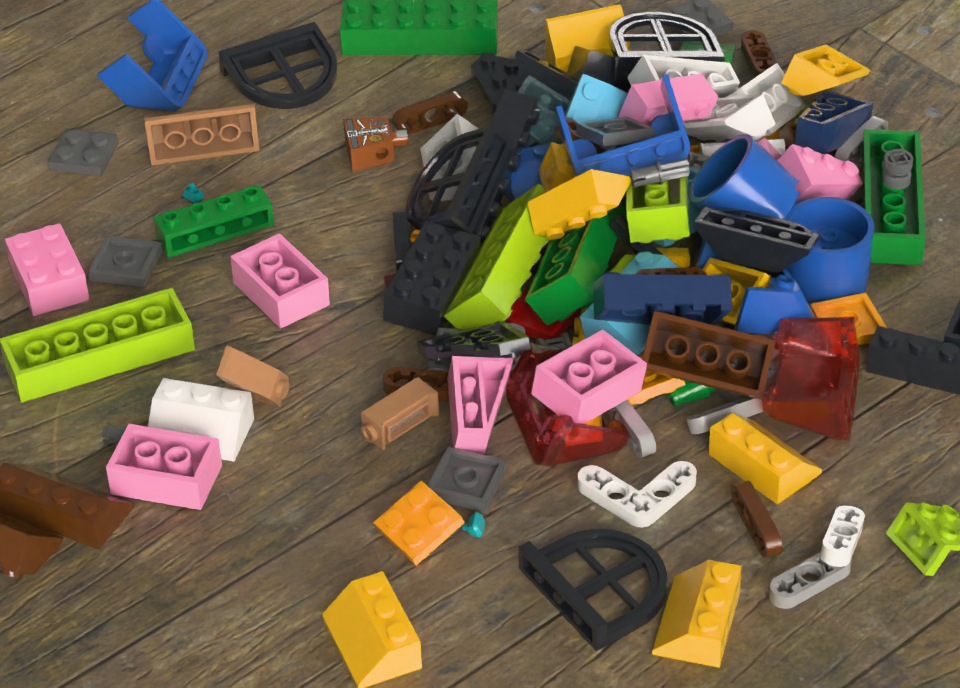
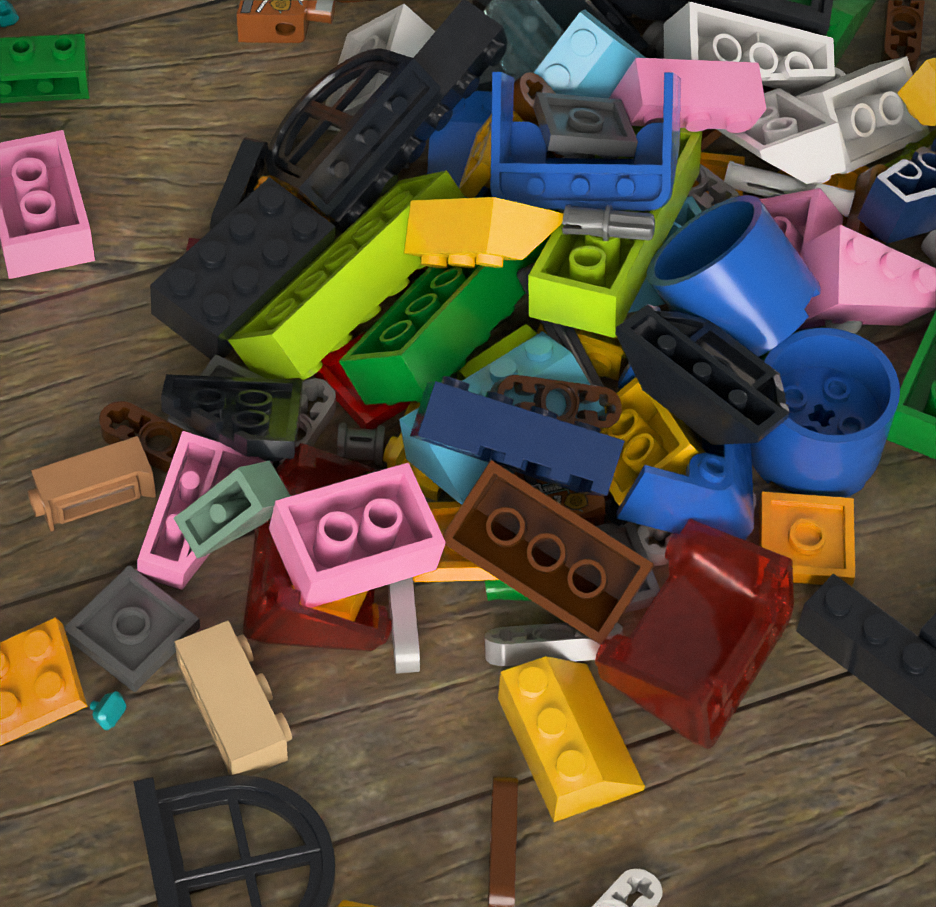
camera: 15 degrees right, 15 degrees up
(505, 386) = (231, 508): none -> sand green slope
(550, 495) = (233, 699): none -> tan brick
(638, 500) = (364, 749): white beam -> none

